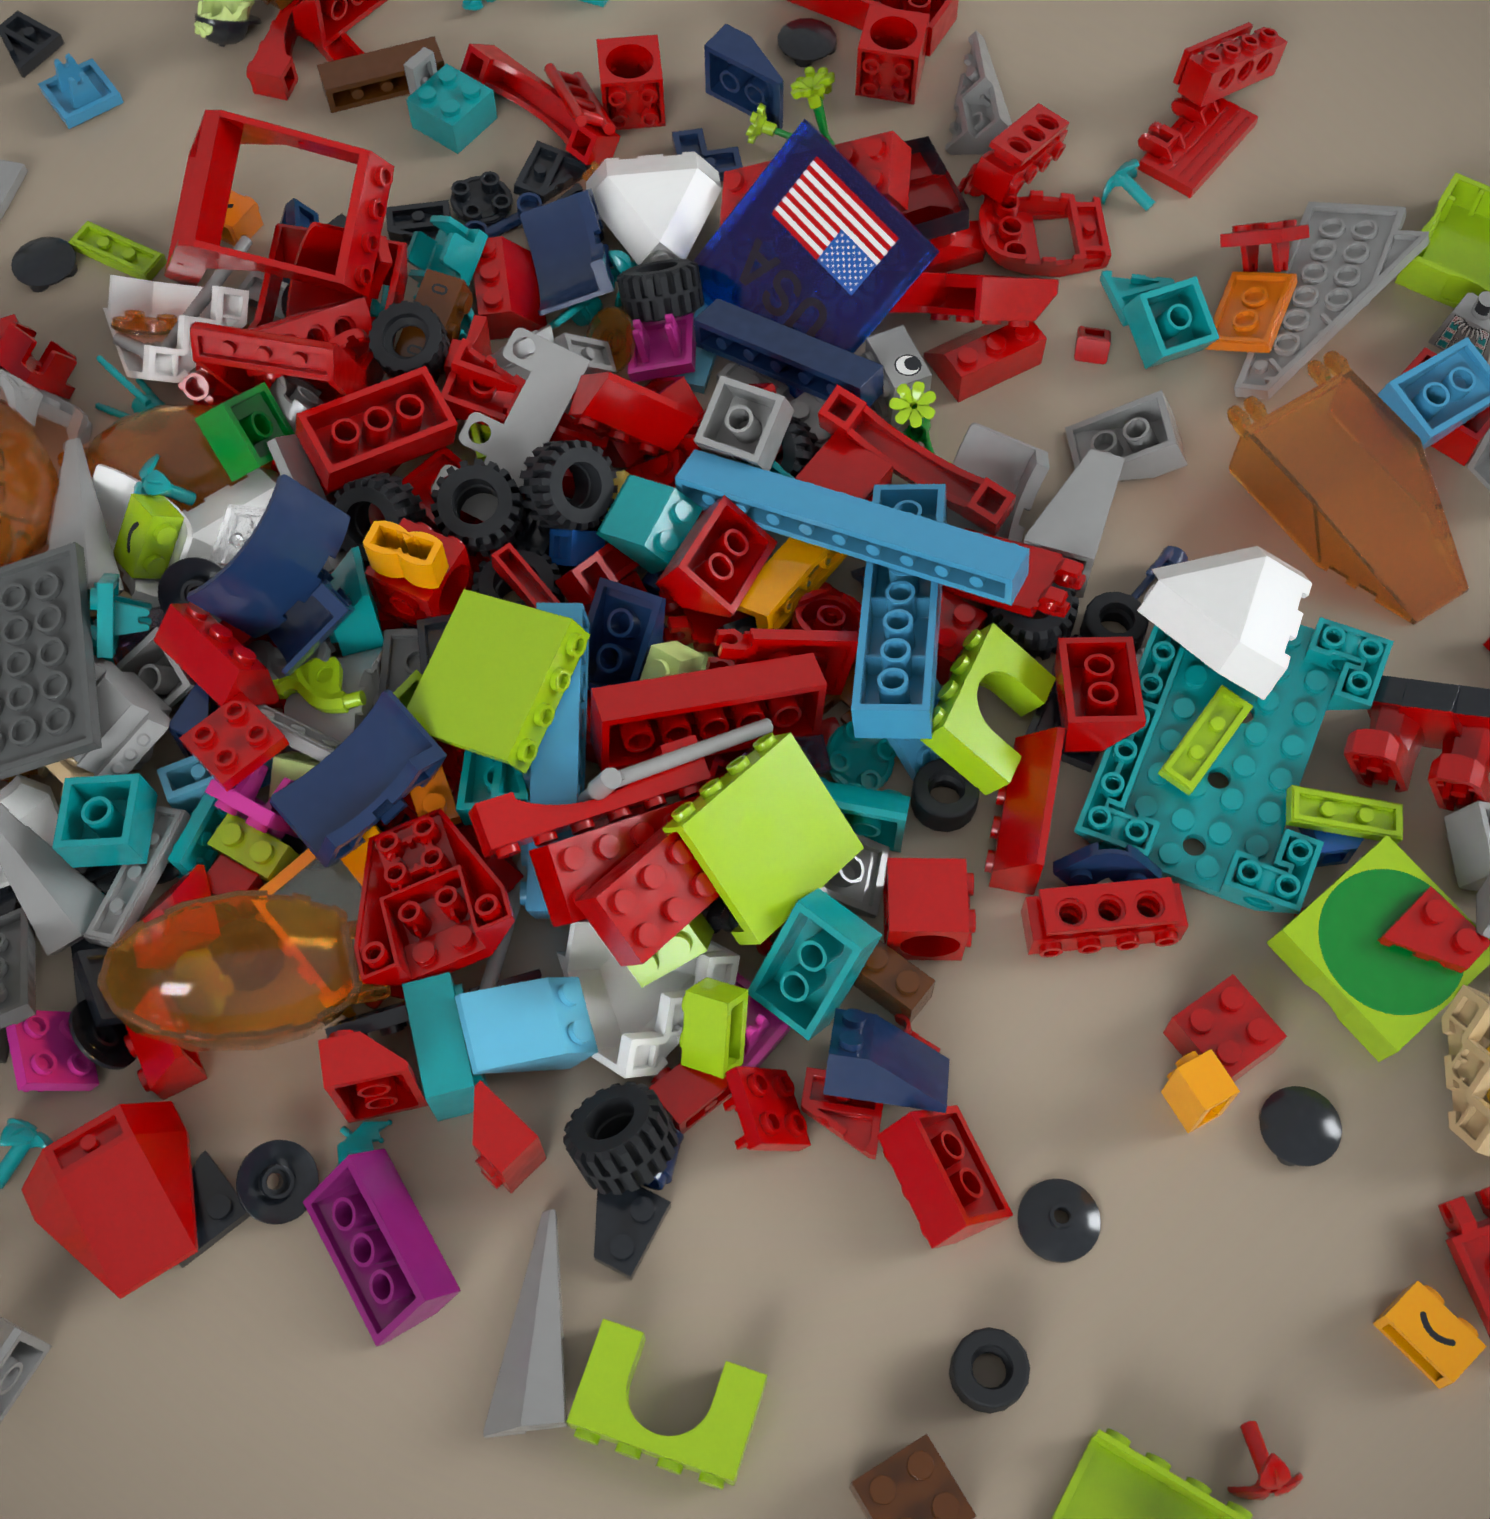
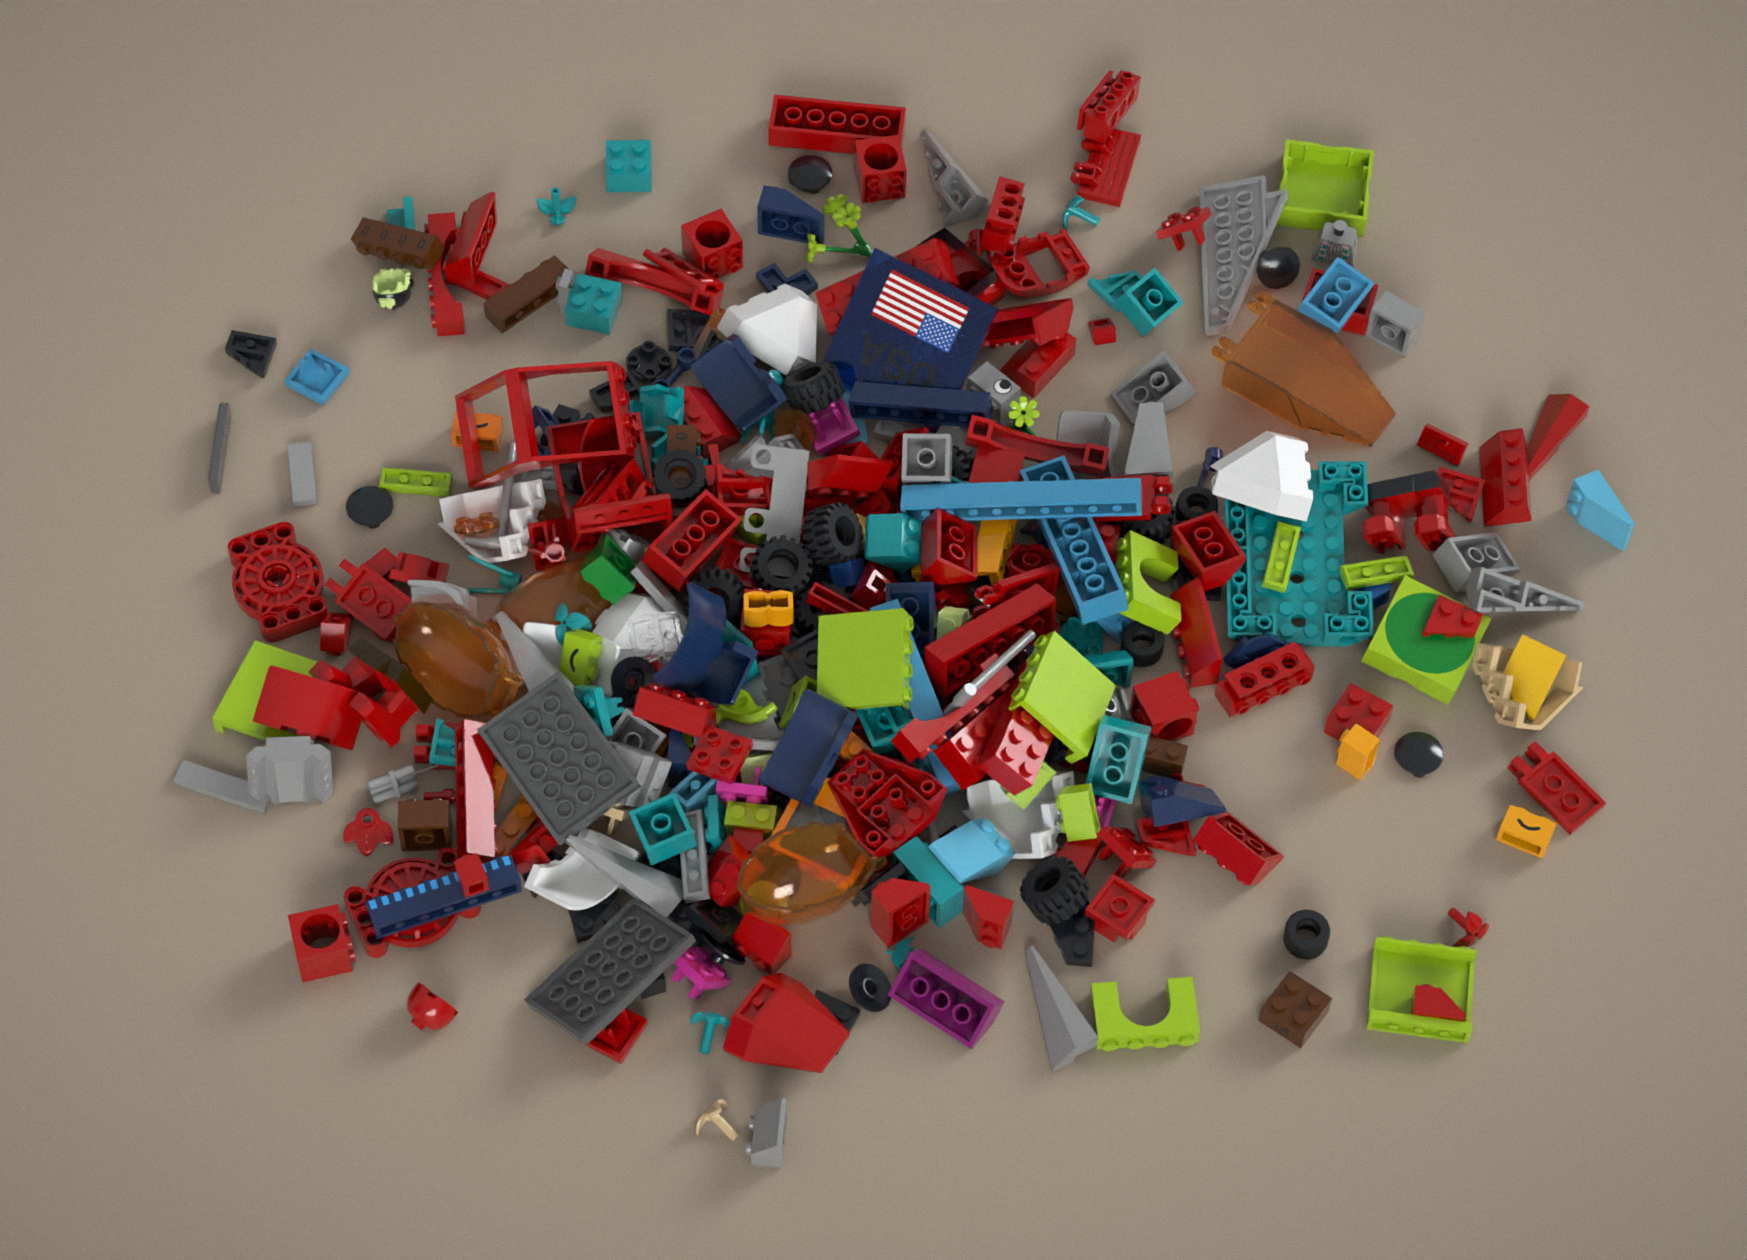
camera: 25 degrees left, 5 degrees down
(709, 1206) = (1119, 909): none -> red panel
(1053, 1239) = (1309, 859): black dish -> none
(1252, 311) = (1194, 275): orange tile -> none
(1375, 334) = (1278, 267): none -> black dish

